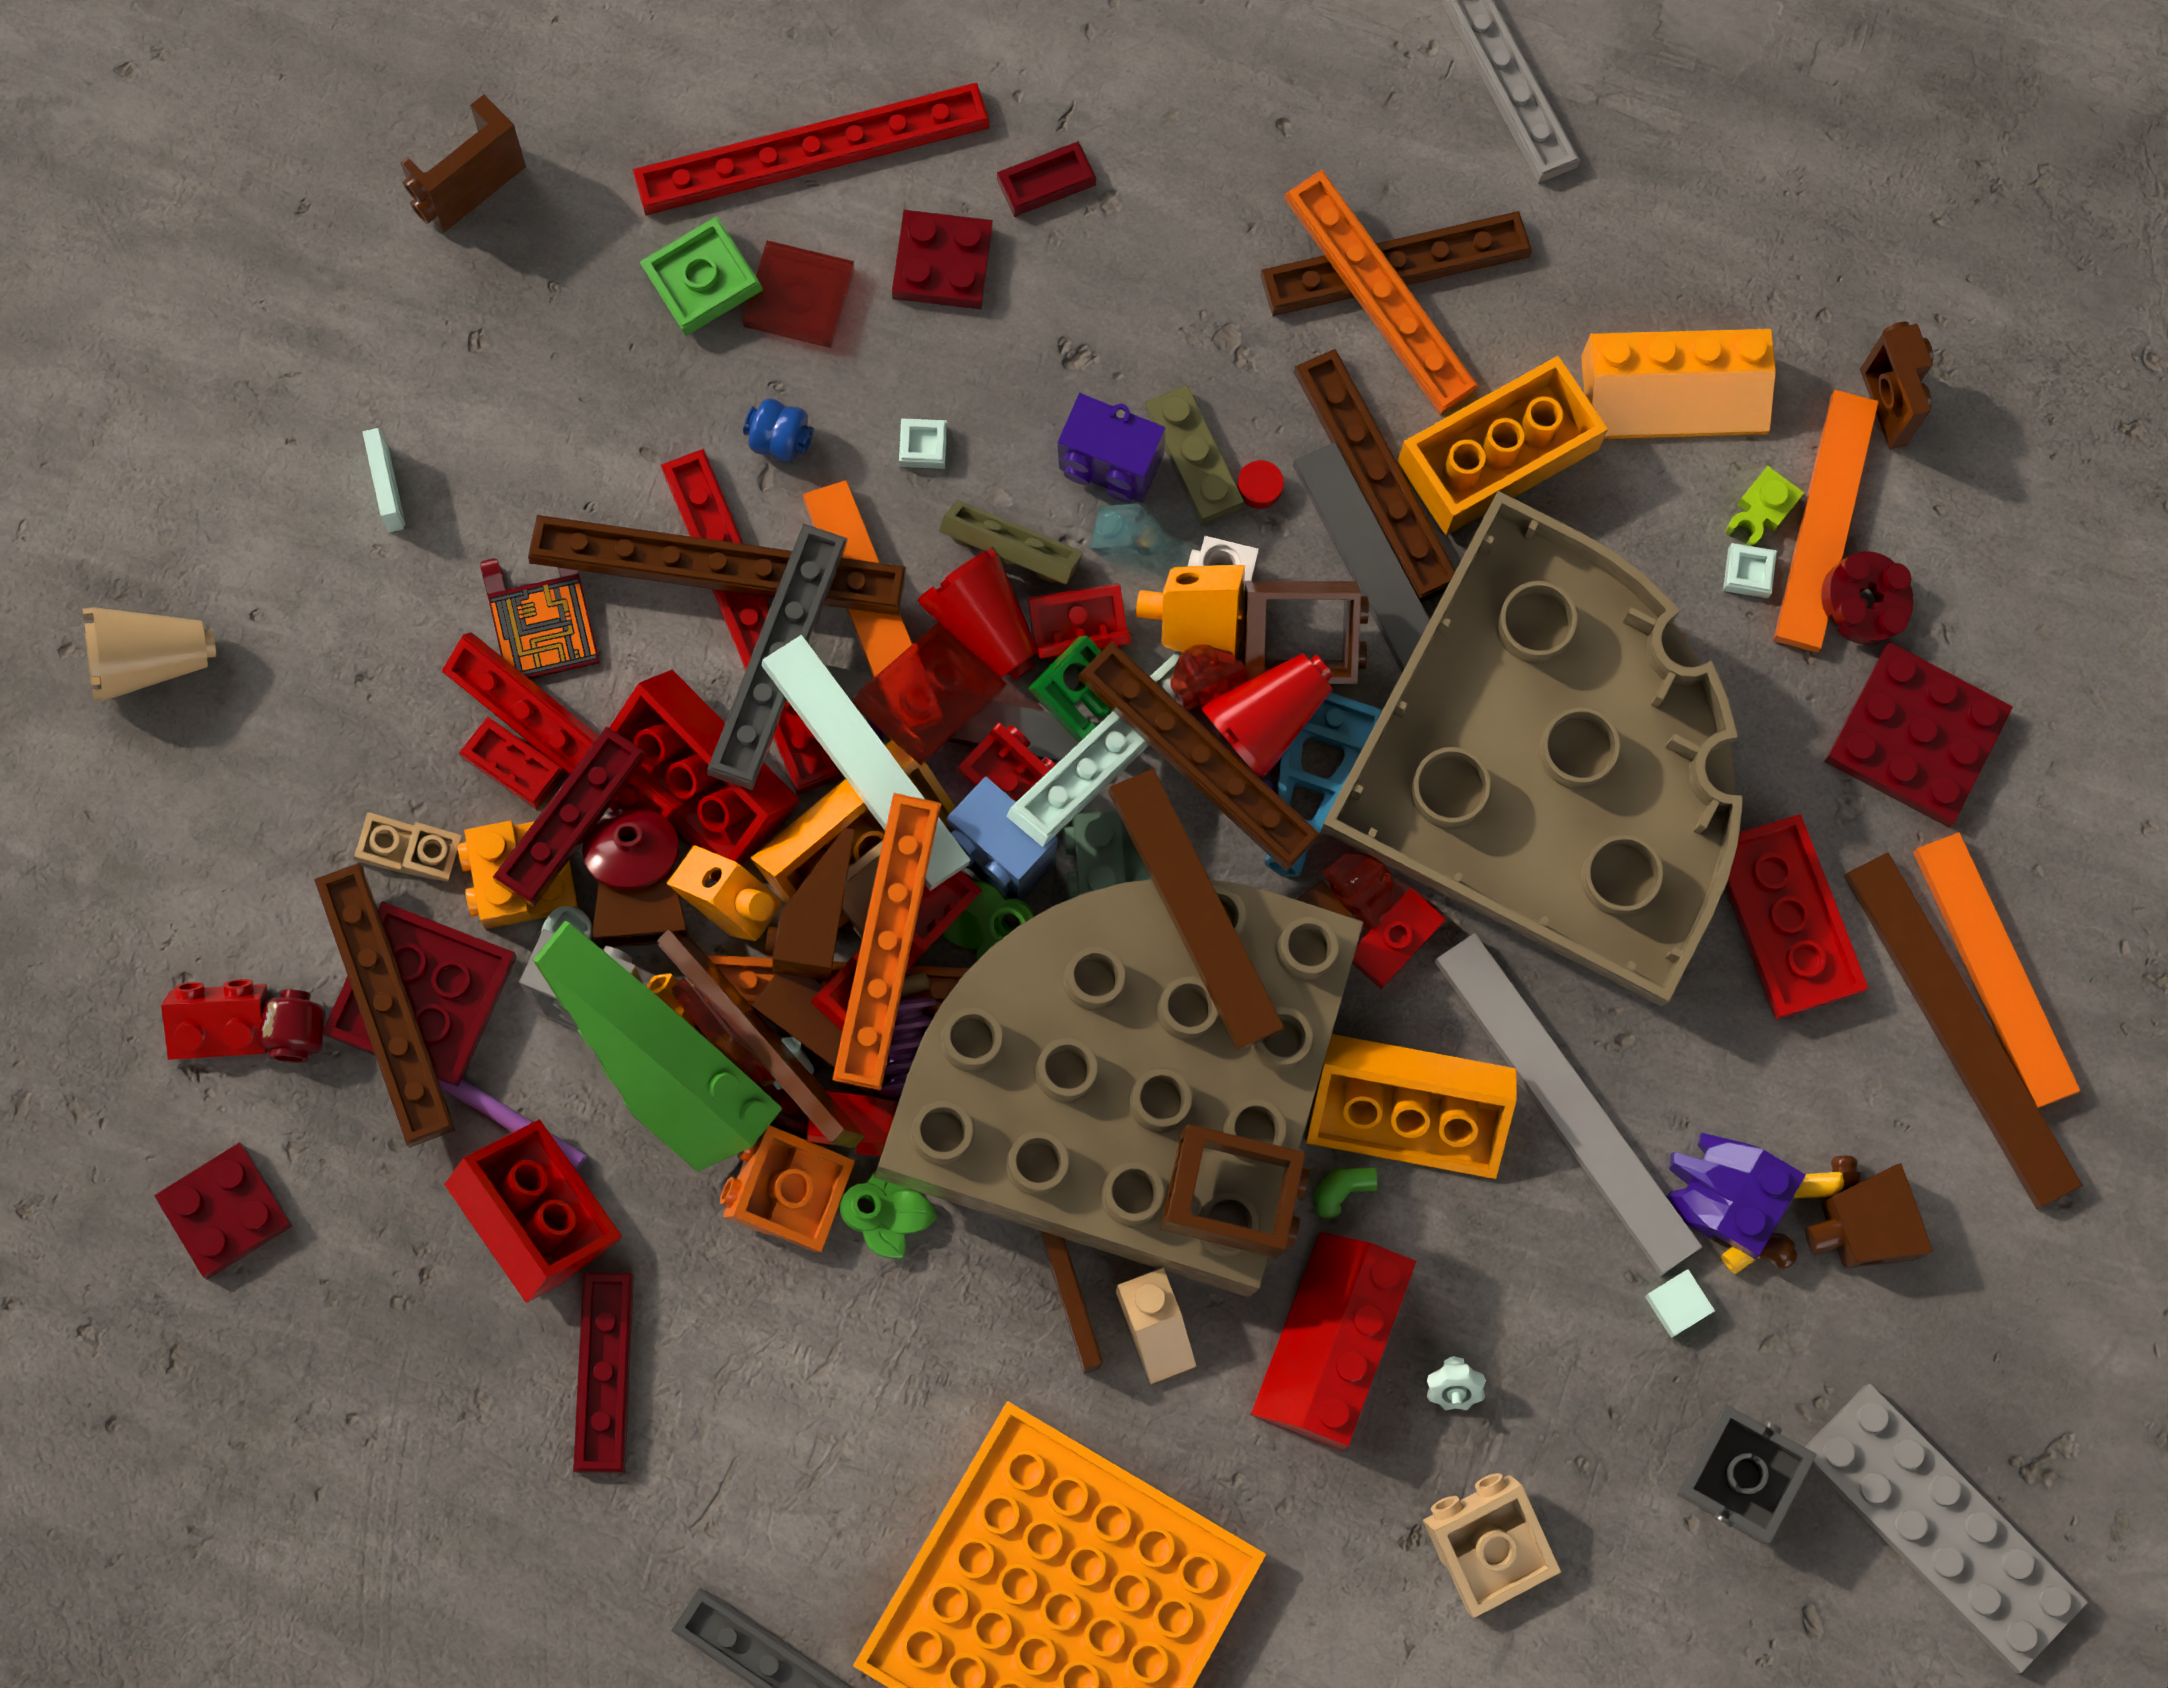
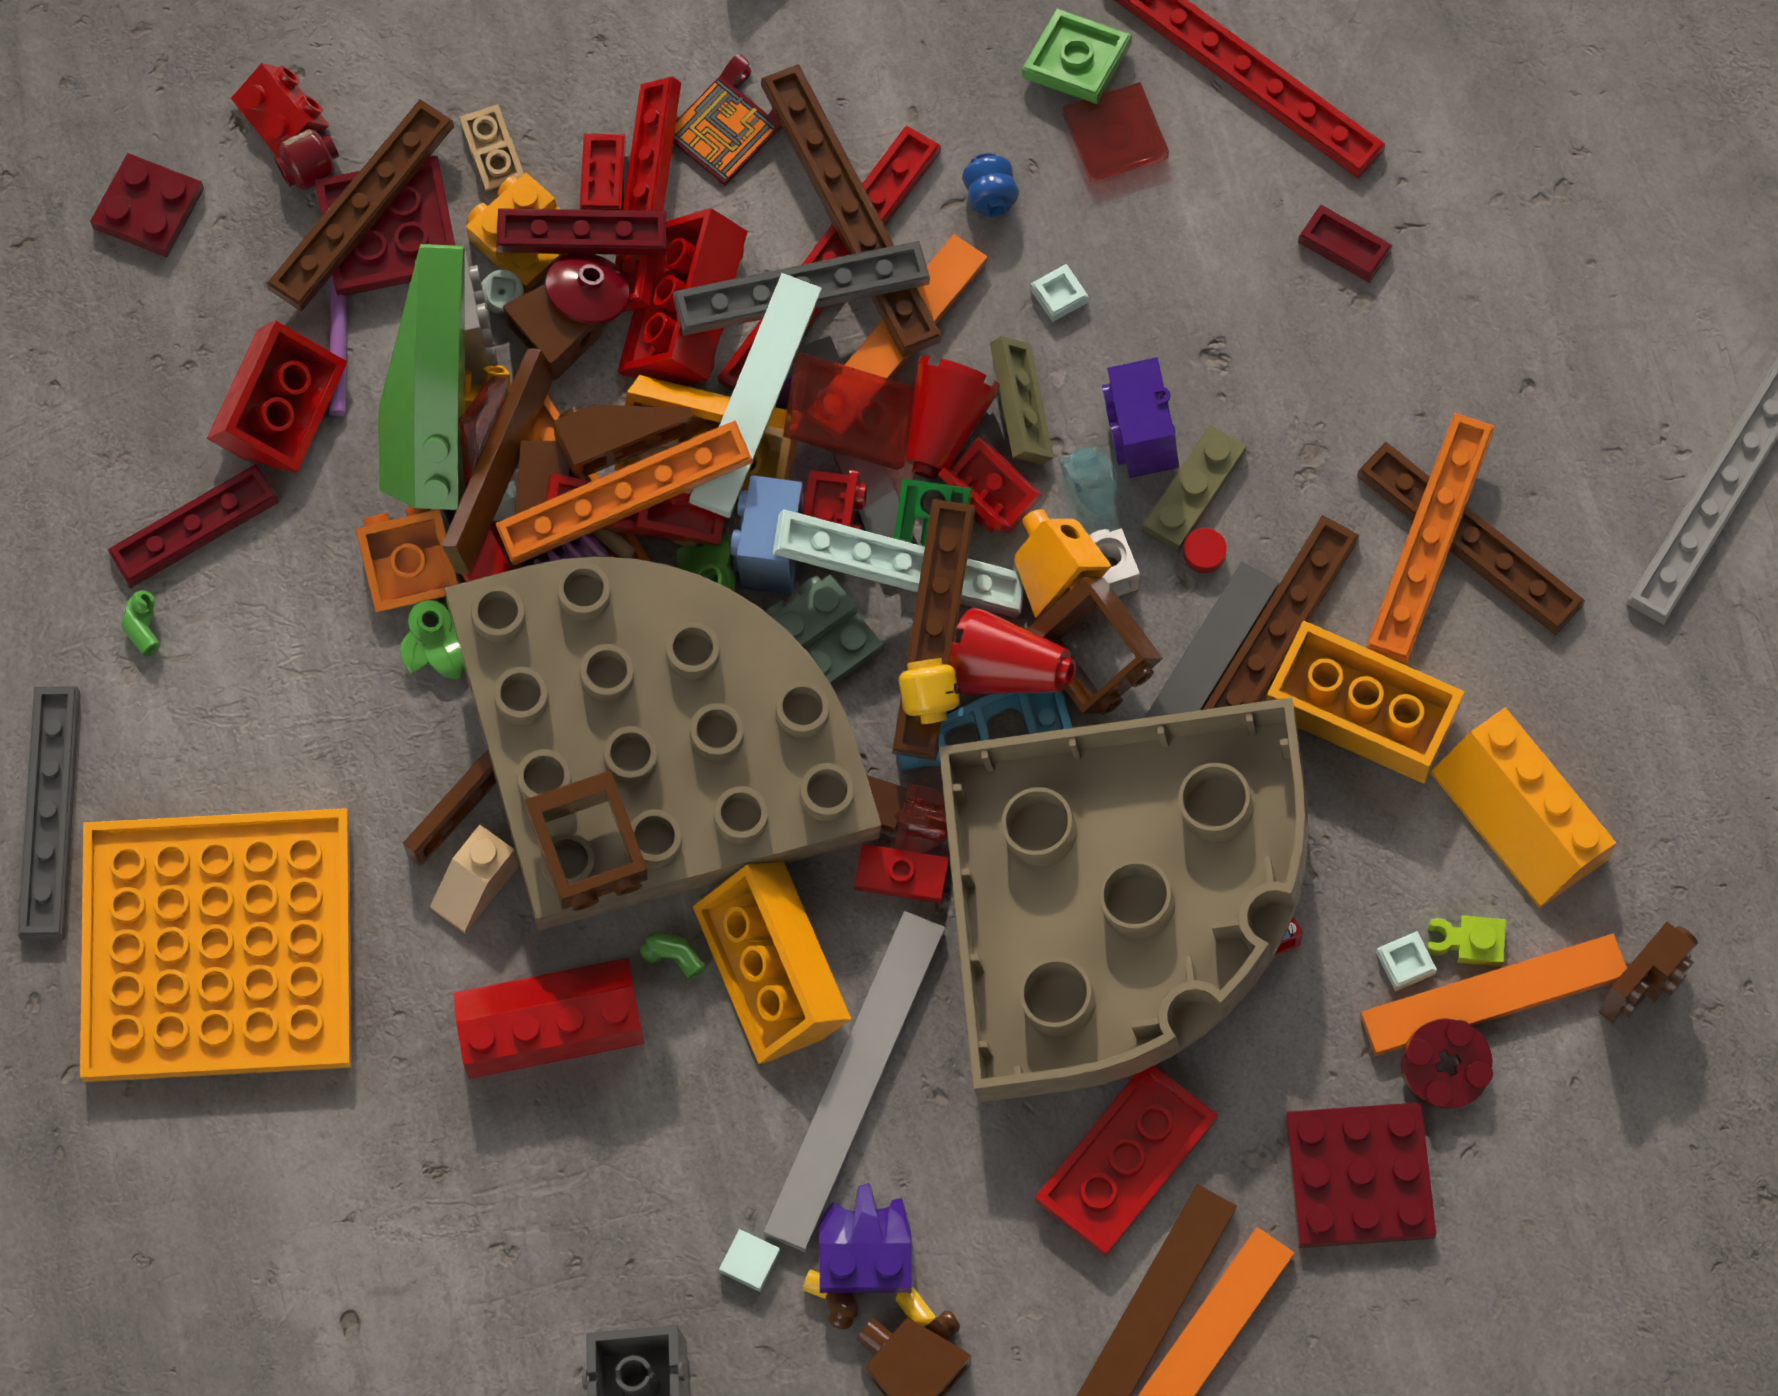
camera: 65 degrees right, 5 degrees down
(669, 1487) = (137, 621): none -> bright green arm
(735, 903) = (594, 373): light orange torso -> none
(942, 259) = (1220, 212): dark red plate -> none
(1195, 909) = (792, 685): reddish brown tile -> none
(1205, 674) = (1006, 595): clear red piece -> none
(1266, 795) = (929, 690): none -> yellow head
(1455, 1385) = (570, 1125): light aqua piece -> none
(1491, 1543) = (462, 1223): tan plate -> none

